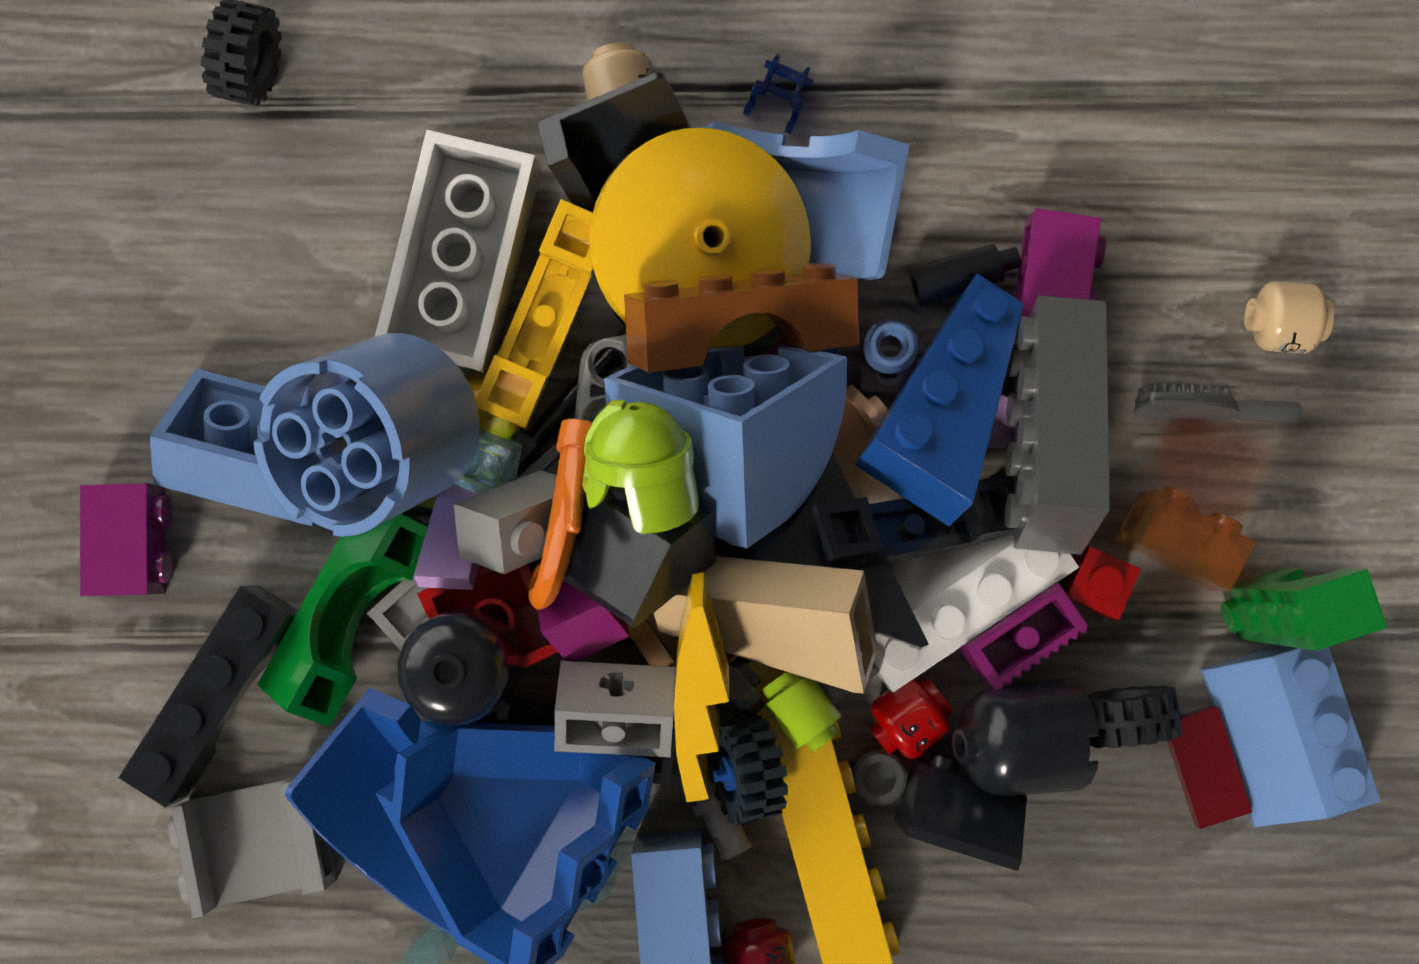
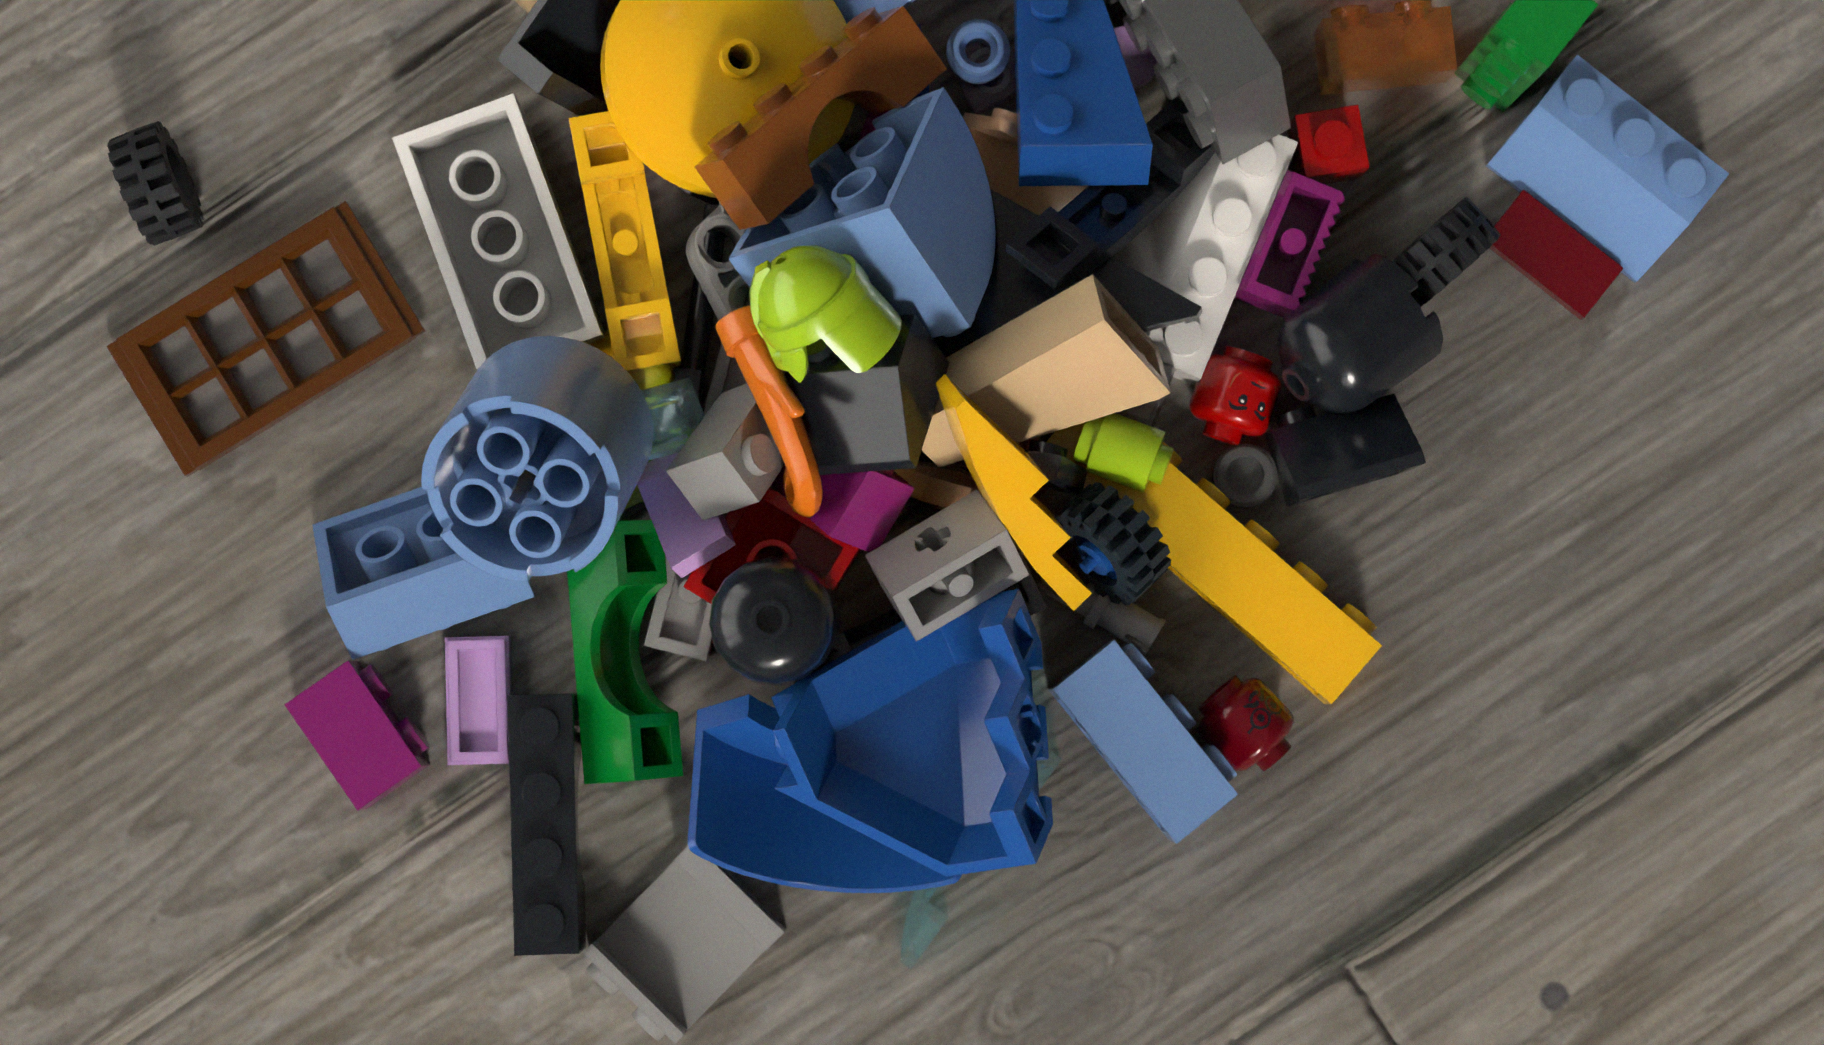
camera: 35 degrees left, 0 degrees up
(232, 561) = (477, 699): none -> lavender tile
(251, 215) = (266, 338): none -> reddish brown piece

